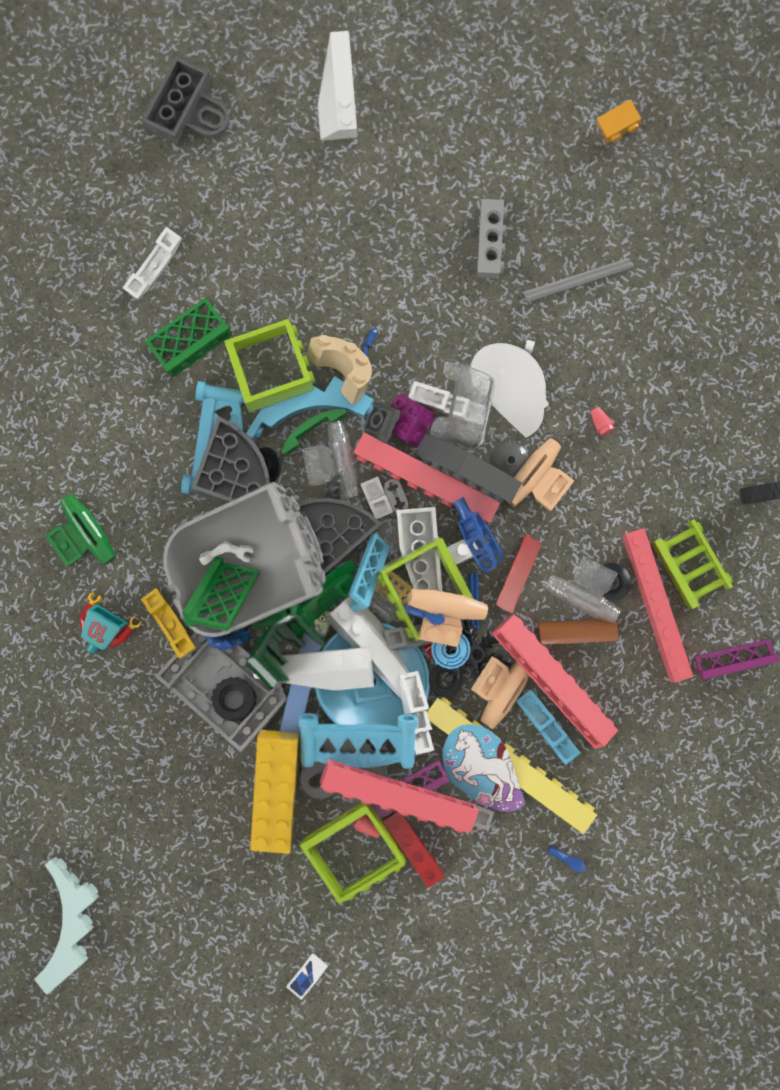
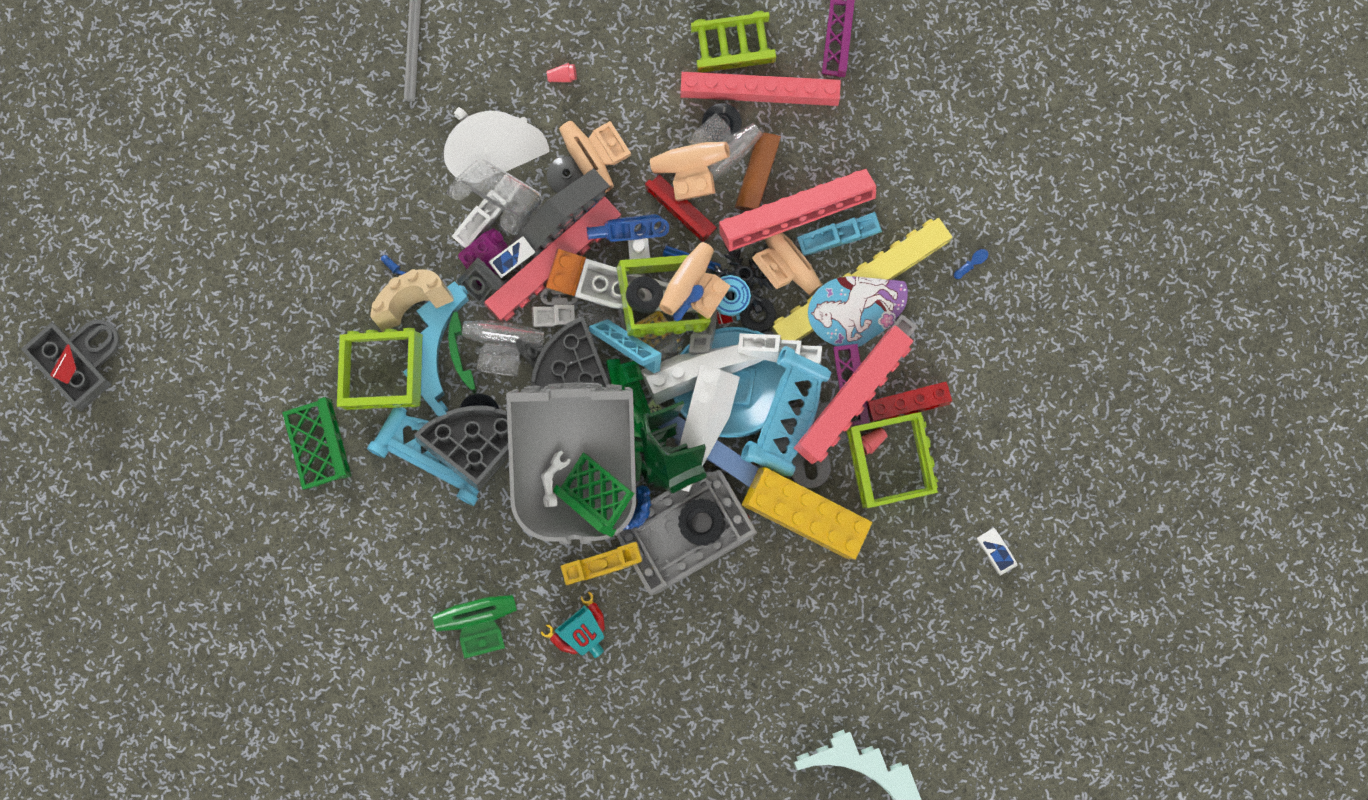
camera: 75 degrees left, 5 degrees down
(154, 264) = (226, 451): white slope -> none
(173, 98) = (65, 366): none -> red sticker
(336, 94) = (123, 204): white wedge -> none
(408, 563) = (647, 283): none -> black tyre
(411, 440) = (512, 257): none -> slope
(417, 493) = (565, 272): none -> orange plate
(491, 209) = (313, 93): light grey brick -> none
(559, 568) = (690, 165): none -> light nougat plate

